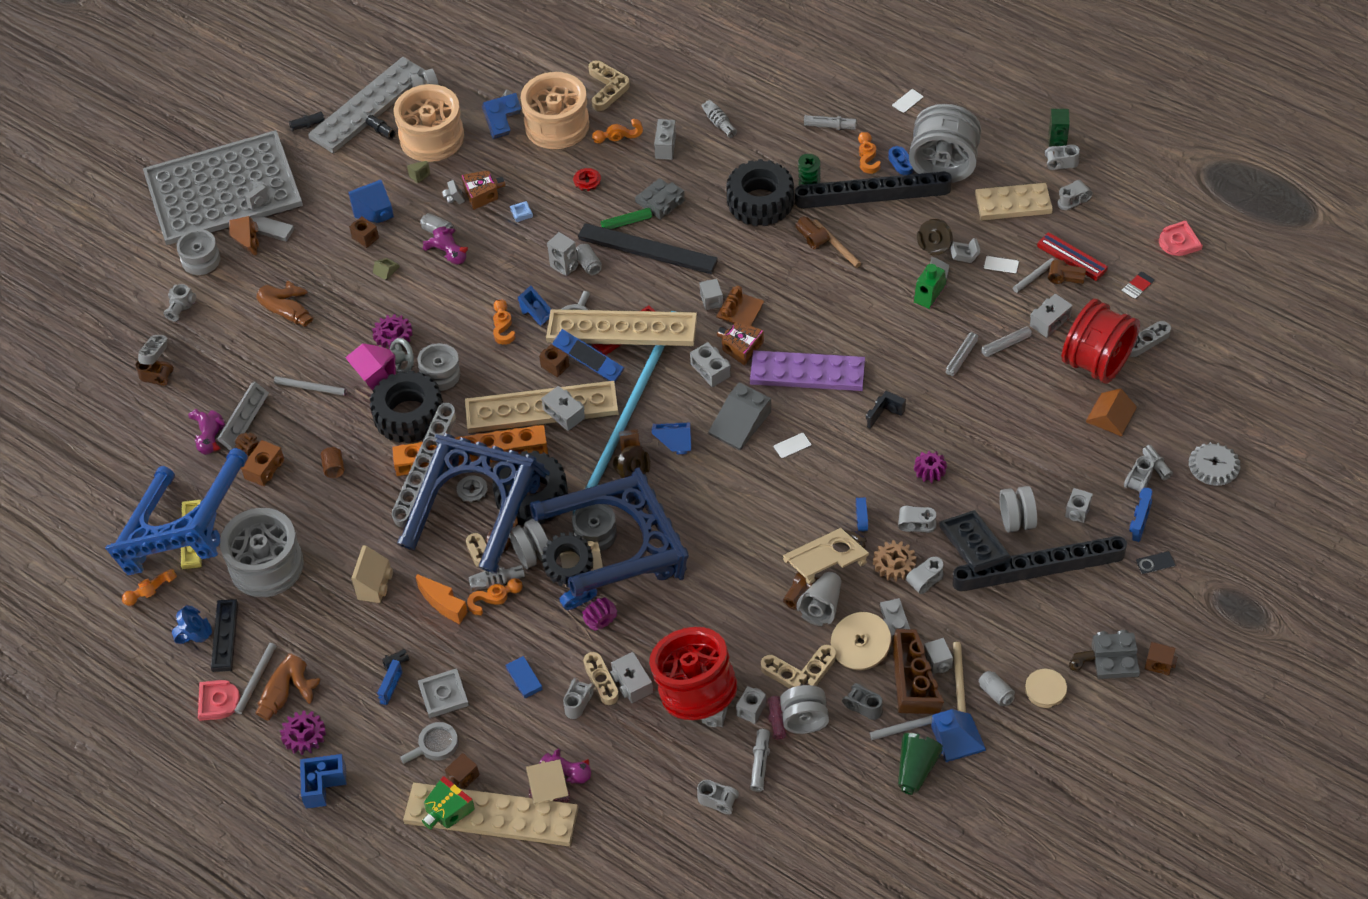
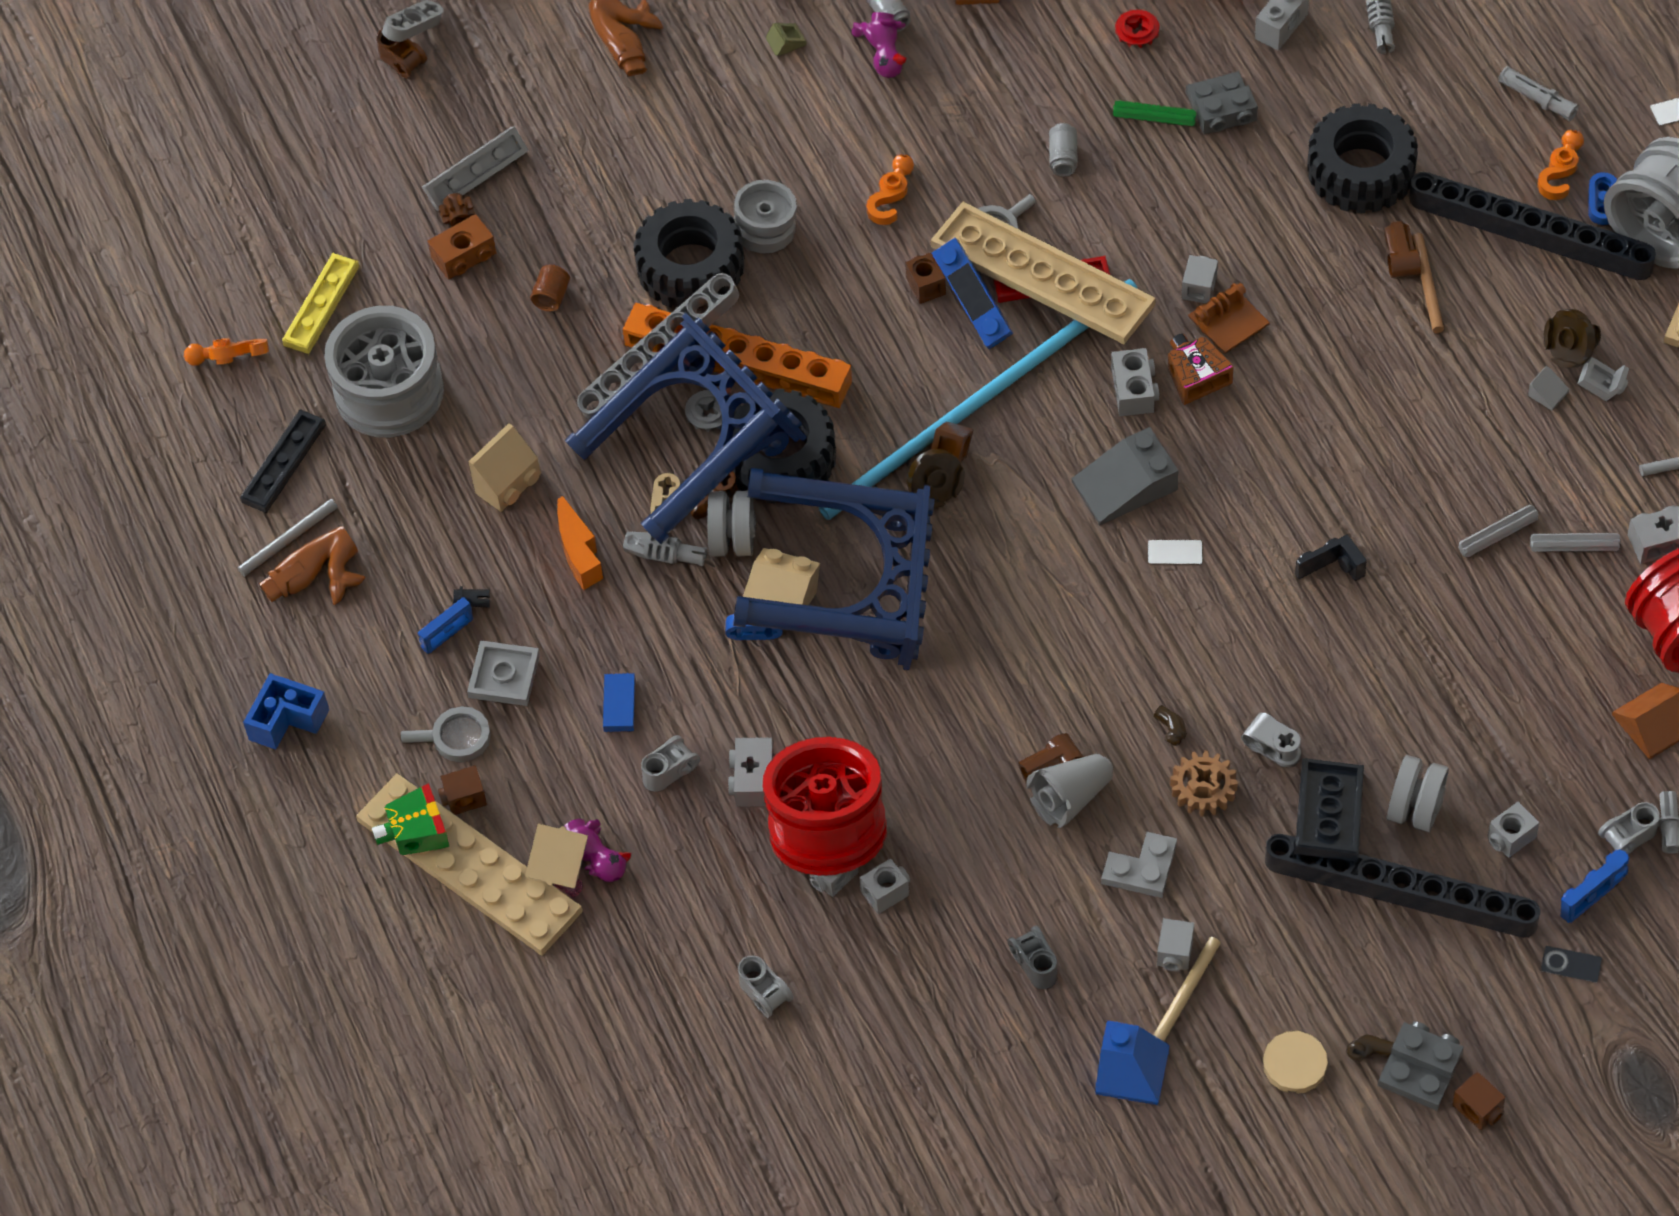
camera: 30 degrees right, 5 degrees up
(191, 530) = (301, 301): blue arch -> none
(191, 626) = (246, 429): blue tile -> none
(209, 427) = (424, 164): magenta animal -> none
(217, 699) = (225, 543): coral tile -> none
(305, 734) = (301, 639): magenta gear -> none
(310, 386) = (587, 165): light grey bar -> none
(377, 363) = (679, 173): dark pink piece -> none
(391, 329) = (736, 137): magenta gear -> none
(495, 595) = (649, 572): orange piece -> none
(521, 211) = (1017, 36): light blue tile -> none
(526, 407) = (869, 336): tan plate -> none
(533, 303) = (946, 184): blue slope -> none
(562, 254) = (1028, 127): light grey brick -> none
(563, 408) = (890, 352): light grey brick -> none
(563, 544) = (751, 547): black tyre -> none
(596, 524) = (832, 540): dark grey wheel -> none
(599, 613) = (763, 664): magenta gear -> none
(600, 686) = (721, 764): tan beam -> none
(648, 248) = (1158, 171): black tile -> none
(674, 436) = (1018, 462): blue slope -> none
(760, 752) = (857, 956): light grey pin -> none
(776, 717) = (907, 920): clear pink pin -> none
(799, 677) = (974, 881): tan beam -> none
(804, 709) = (944, 927): light grey wheel -> none
(807, 370) = (1265, 453): medium lavender plate -> none
(809, 169) = (1451, 155): dark green piece -> none
(821, 555) = (1105, 727): tan piece -> none
(861, 513) = (1202, 695): blue beam -> none
(868, 628) = (1104, 882): tan piece -> none
(901, 727) = (1063, 1016): light grey bar -> none
(914, 681) = (1118, 962): reddish brown wedge -> none
(916, 761) = (1047, 1073): dark green cone -> none
(926, 575) = (1230, 824): light grey piece -> none
(930, 466) = (1341, 673): magenta gear -> none
(934, 281) = (1514, 408): green torso -> none
(997, 688) = (1225, 1029): light grey head -> none
(1001, 264) = (1647, 423): white sticker -> none

